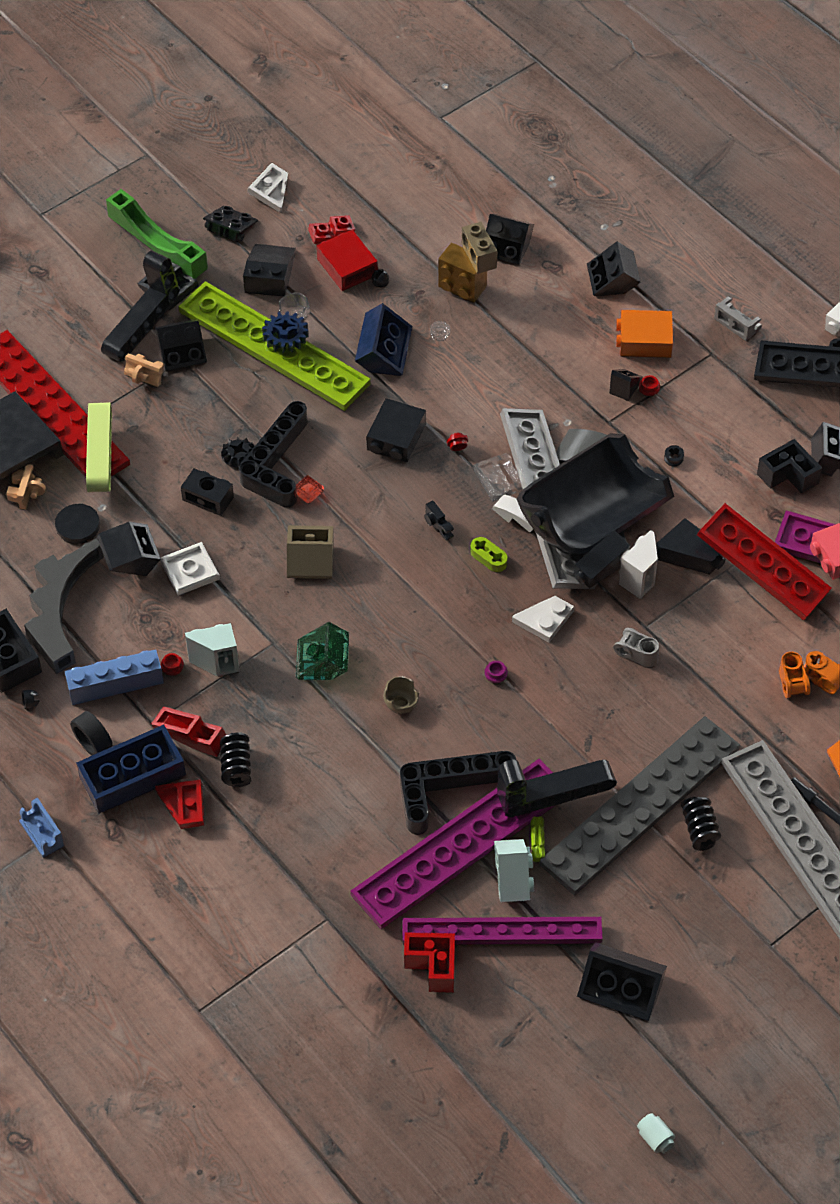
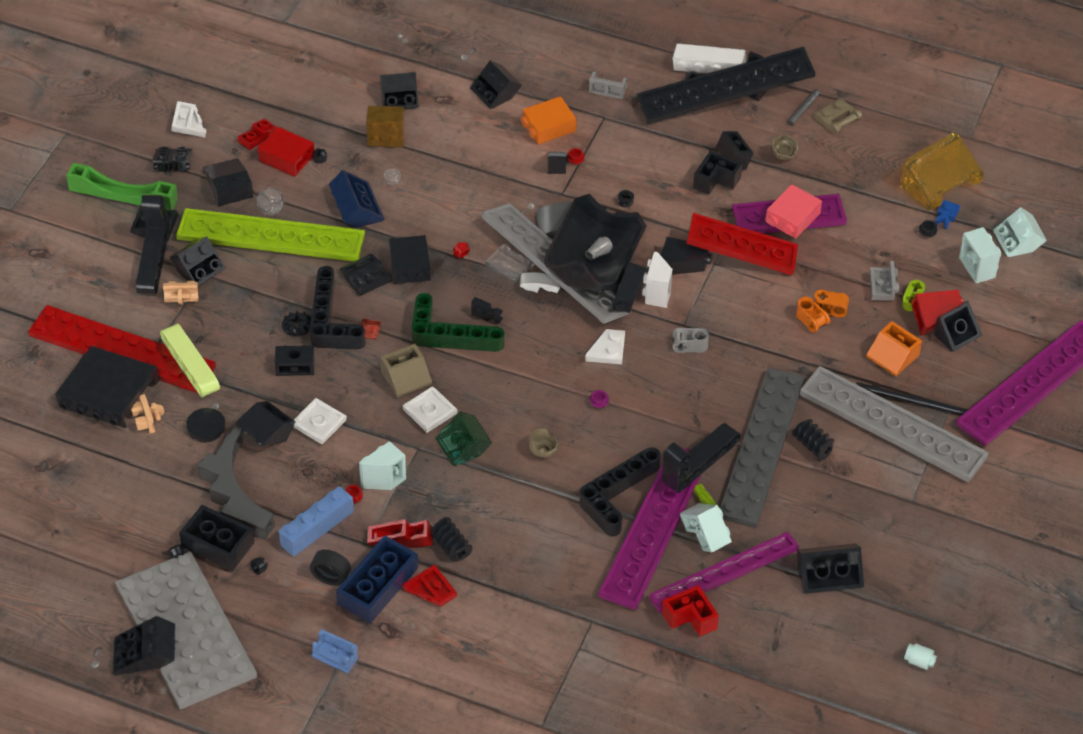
camera: 30 degrees left, 5 degrees down
(285, 332) = (278, 220): dark blue gear -> none
(310, 605) = (429, 409): none -> white plate
(342, 428) = (365, 274): none -> black slope
(362, 520) = (451, 335): none -> dark green beam
(479, 247) = (396, 100): dark tan brick -> none
(486, 556) = (537, 320): lime beam -> none
(602, 500) = (599, 248): none -> light grey cone

